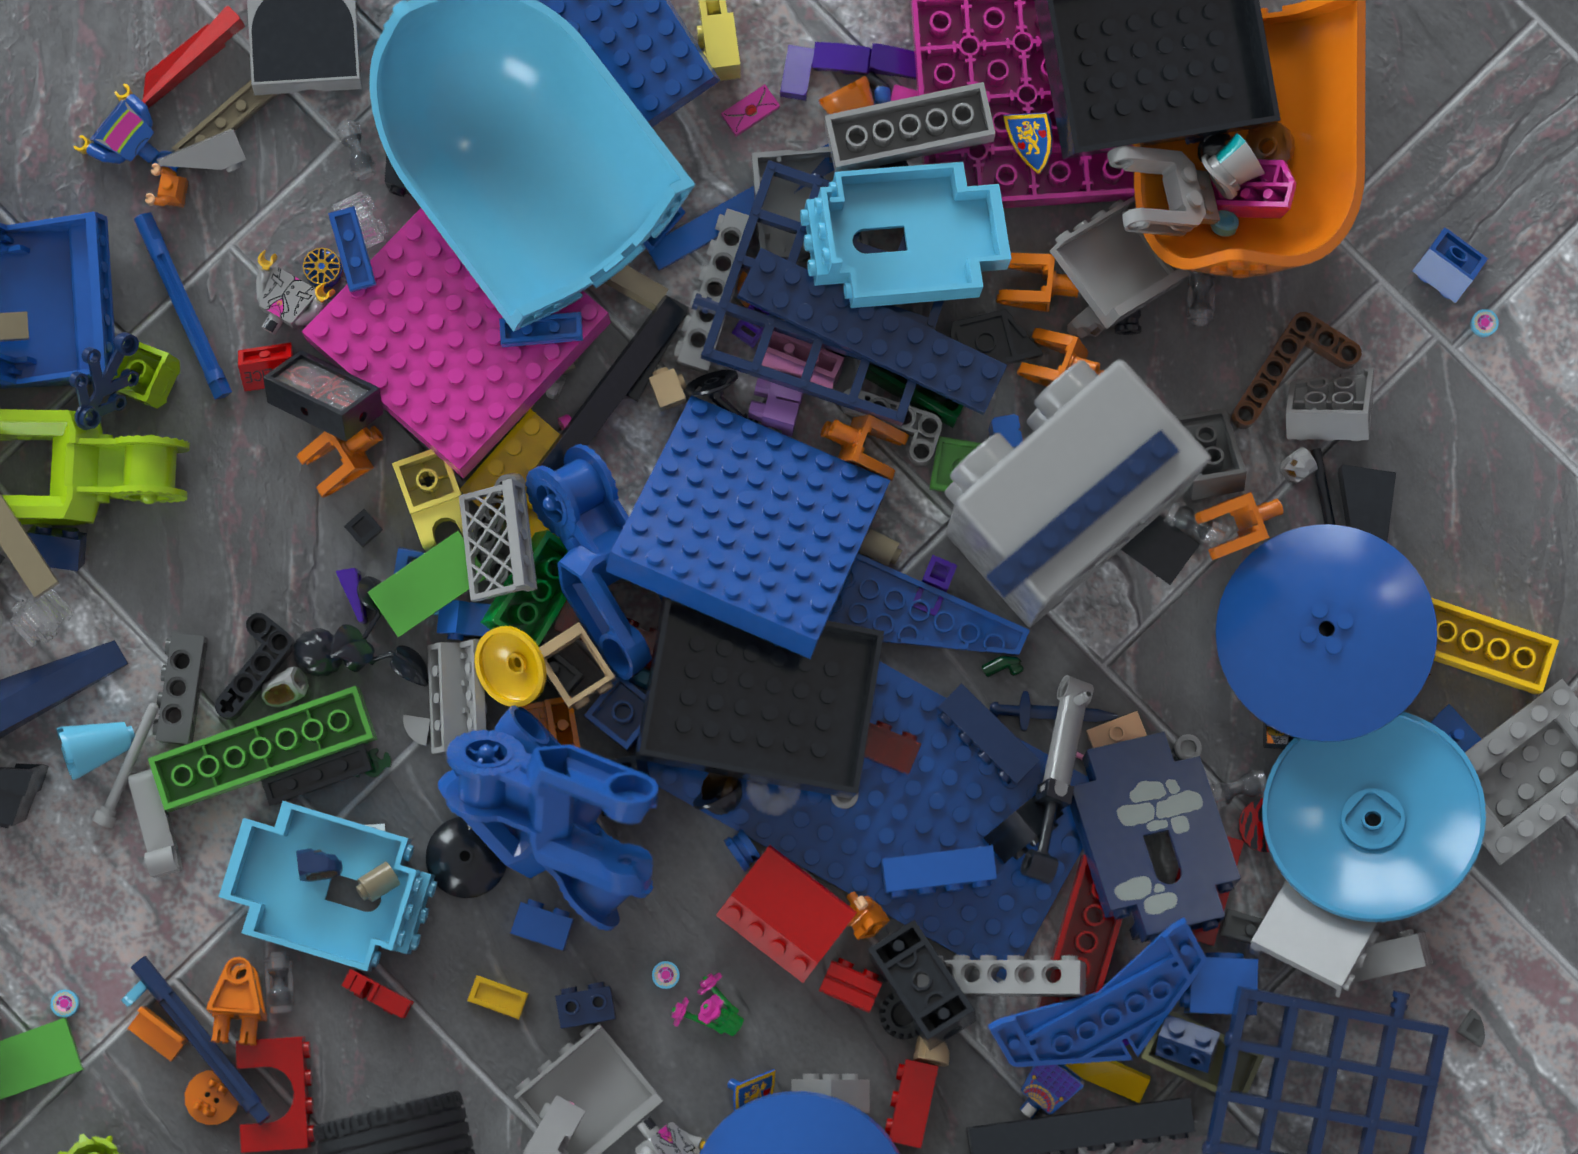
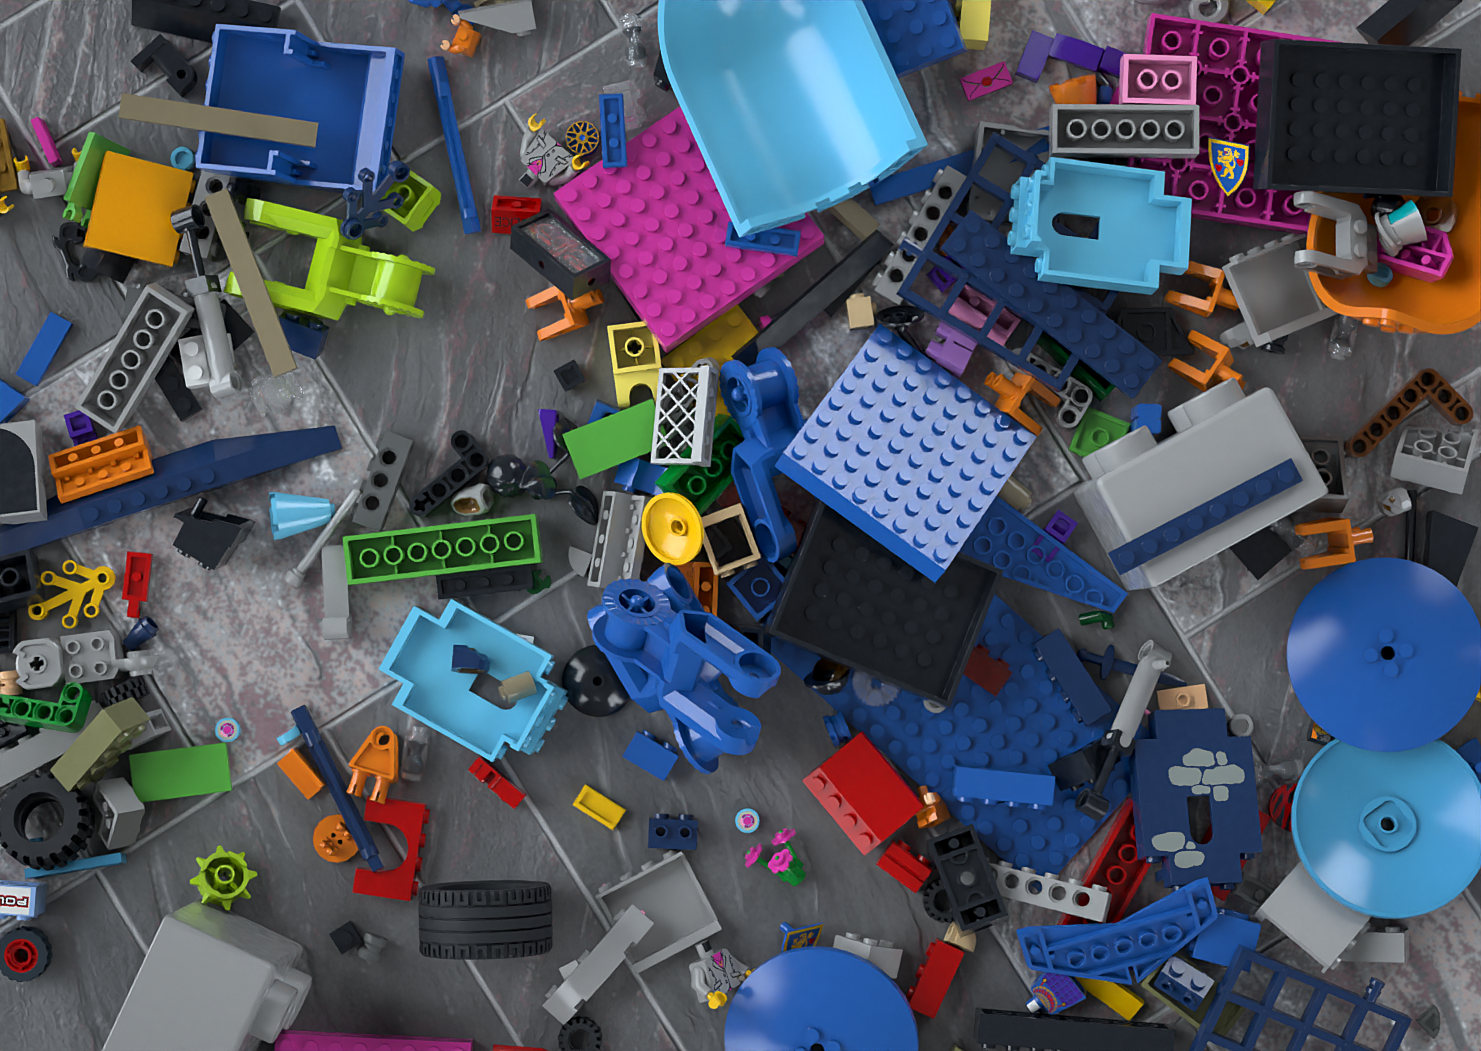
camera: 10 degrees right, 5 degrees up
(933, 64) = (1157, 80): none -> bright pink brick

